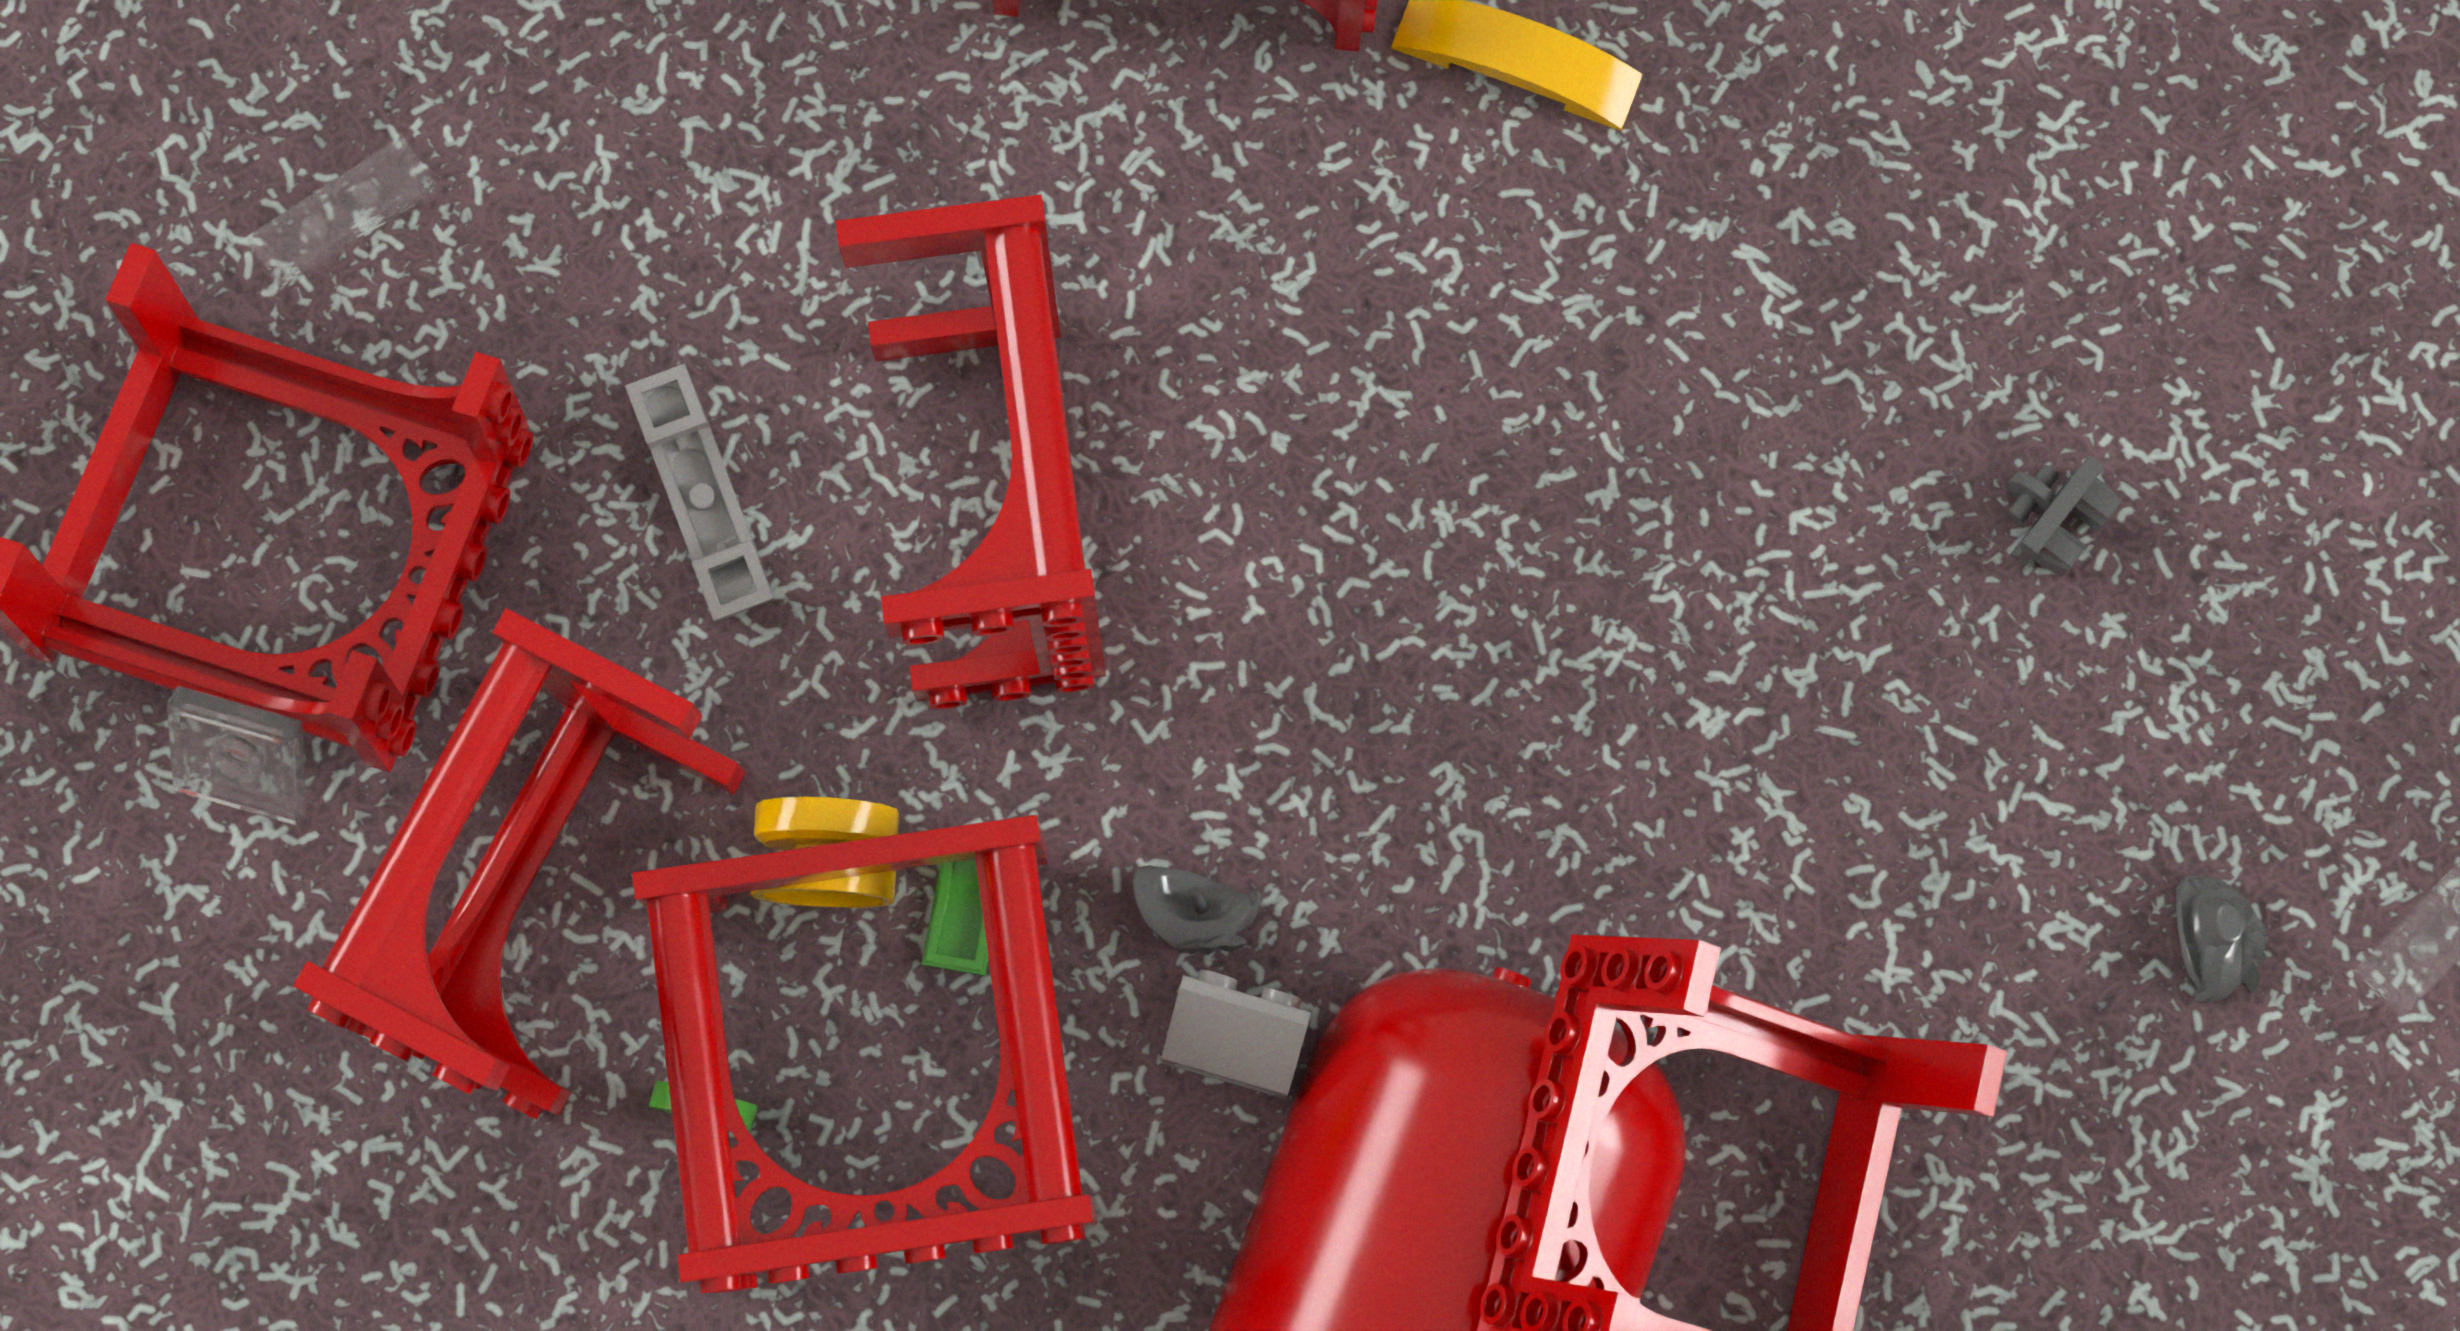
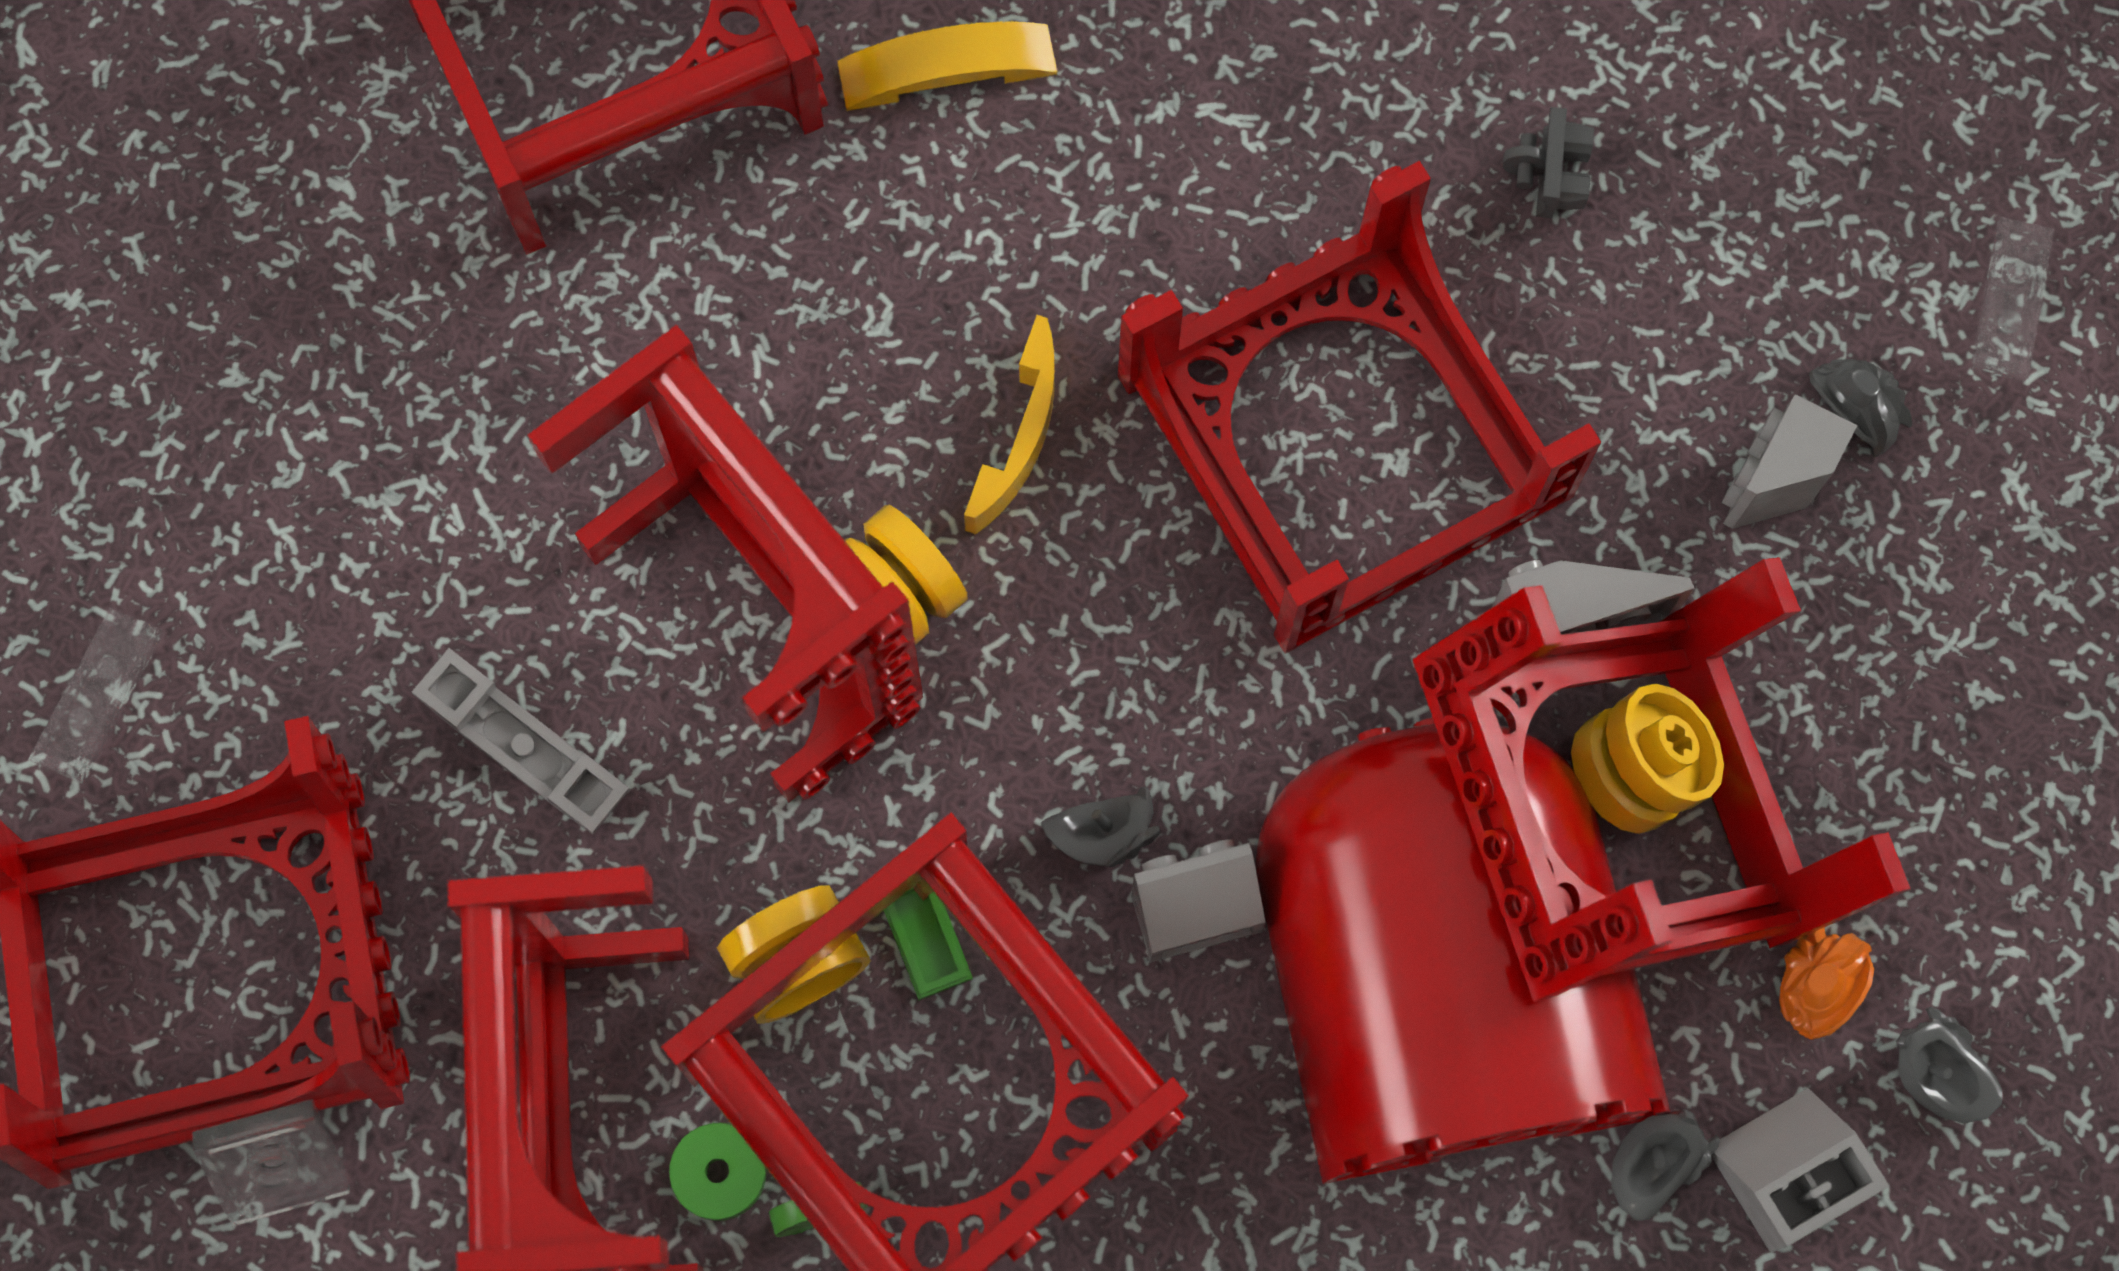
camera: 30 degrees left, 5 degrees down
(607, 1013) = (690, 1178): none -> bright green piece
(1145, 547) = (911, 560): none -> yellow wheel
(1297, 516) = (996, 487): none -> yellow slope
(1758, 1164) = (1647, 758): none -> yellow wheel
(1792, 971) = (1599, 596): none -> light grey slope
(1835, 508) = (1394, 251): none -> red arch
(2097, 962) = (1787, 462): none -> light grey slope

